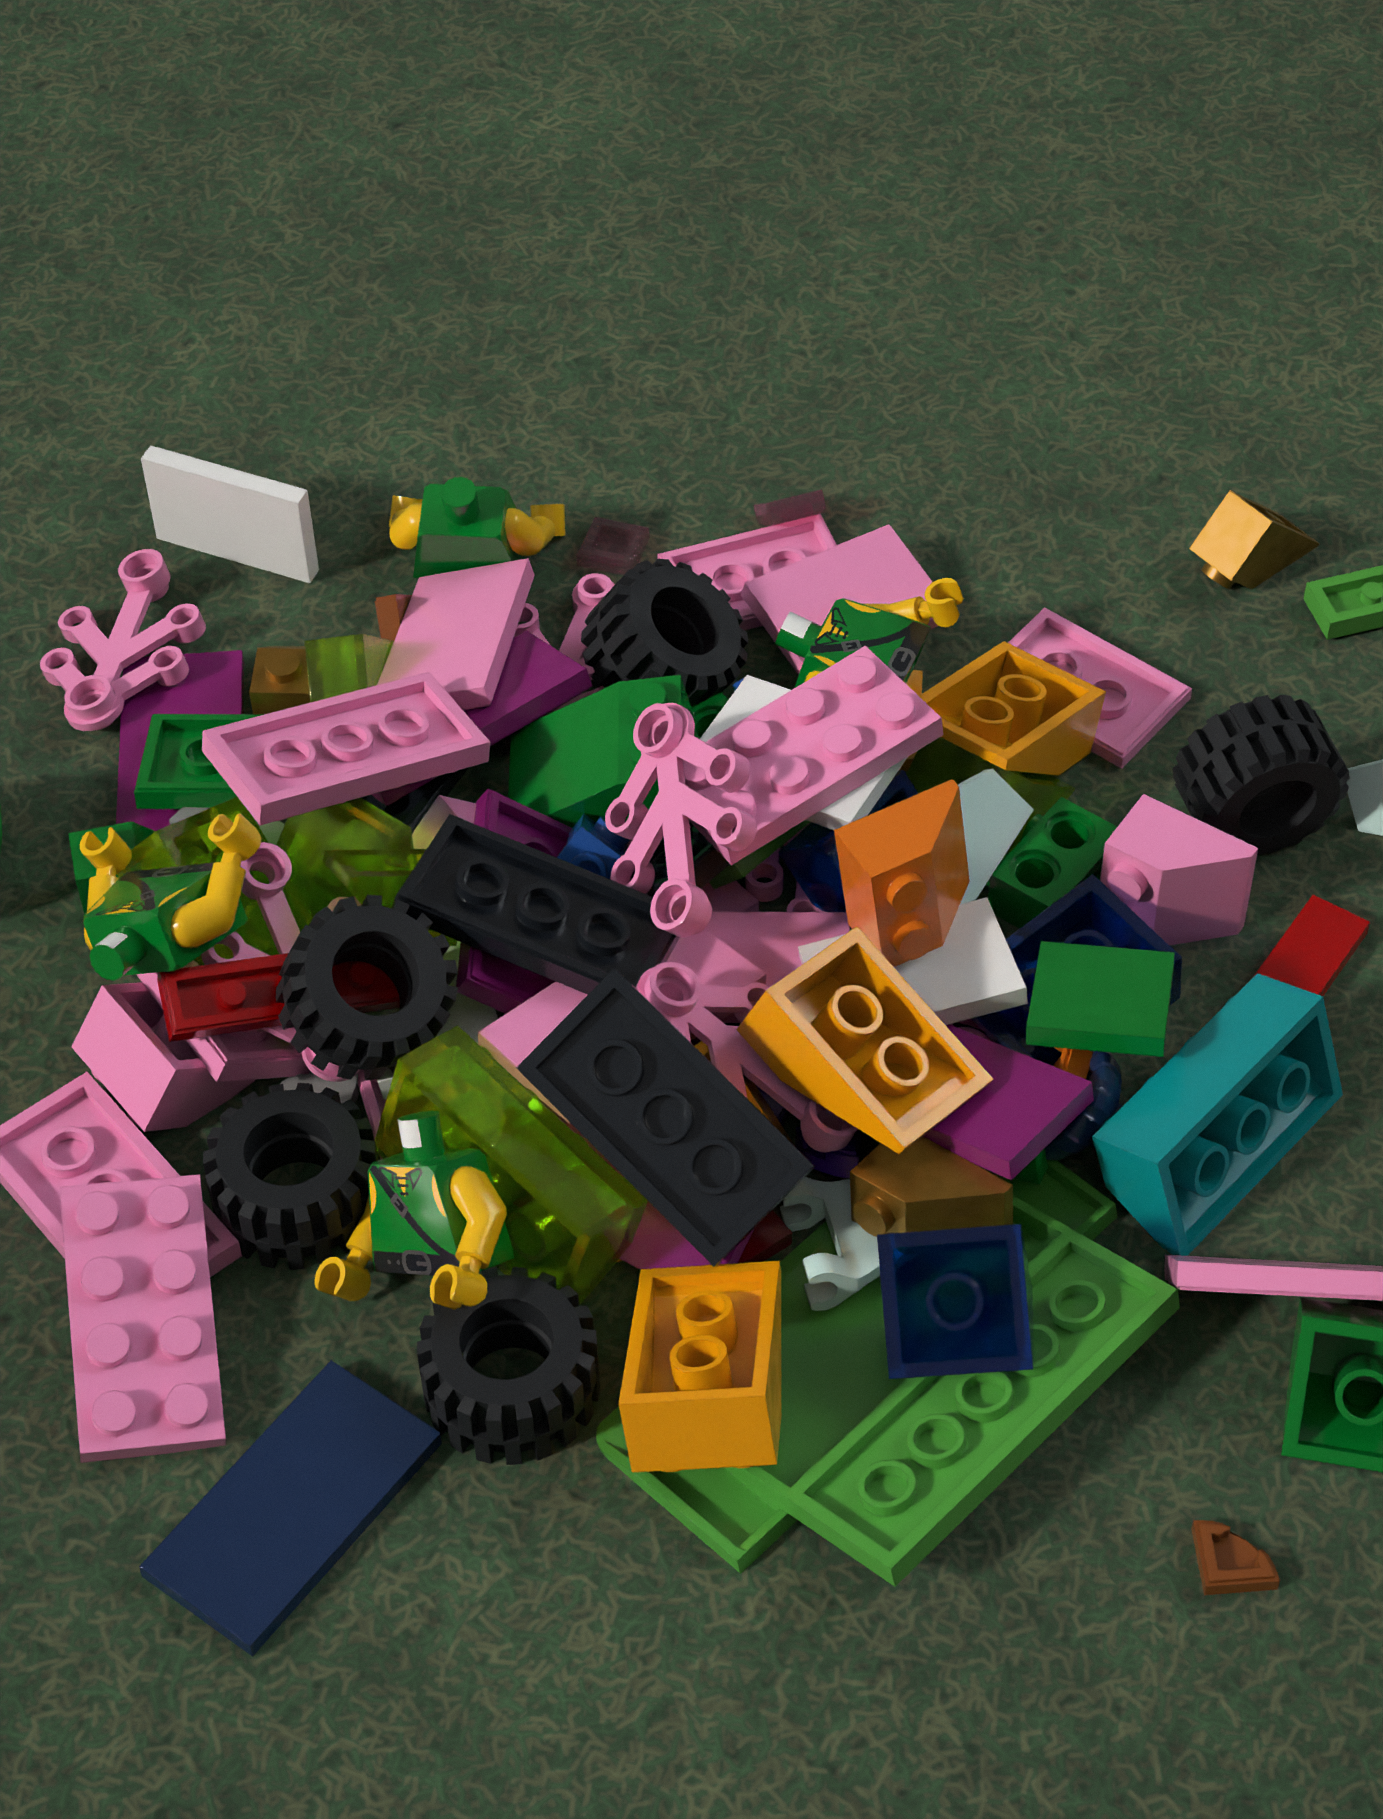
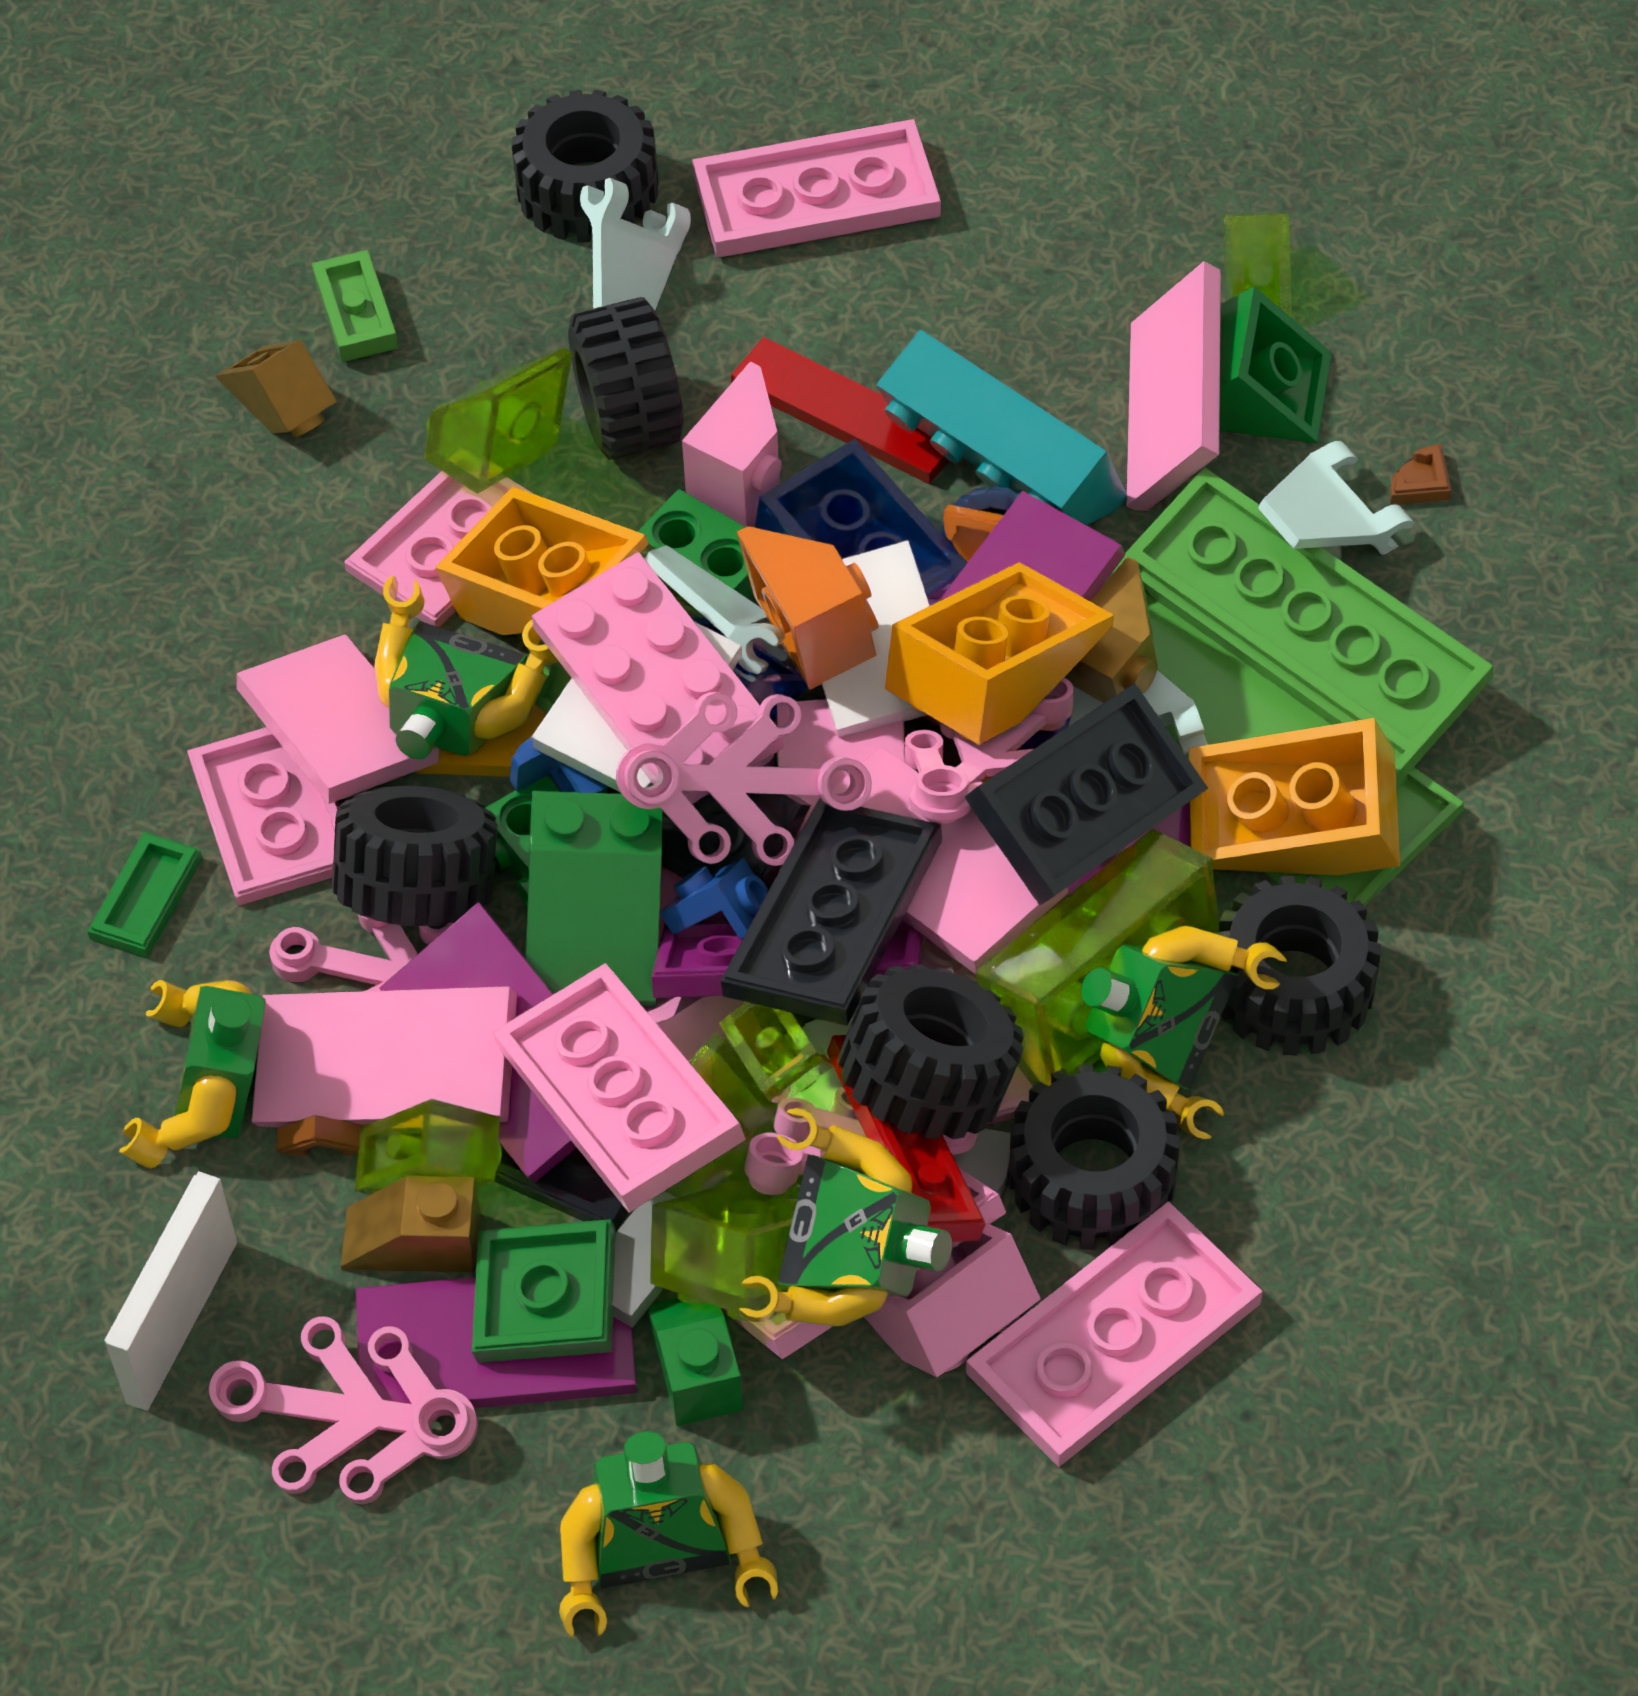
camera: 90 degrees left, 5 degrees up
(141, 1318) = (1265, 1268): bright pink plate -> none
(290, 1507) = (1437, 1145): dark blue tile -> none
(612, 546) = (213, 943): tile -> none
(668, 501) = (145, 894): none -> green tile
(790, 508) = (181, 773): clear pink tile -> none
(956, 1301) = (1239, 615): clear blue slope -> none
(1101, 999) = (917, 488): green tile -> none
(1139, 1421) = (1321, 510): none -> light aqua flag
(1191, 680) = (500, 422): none -> clear neon green slope

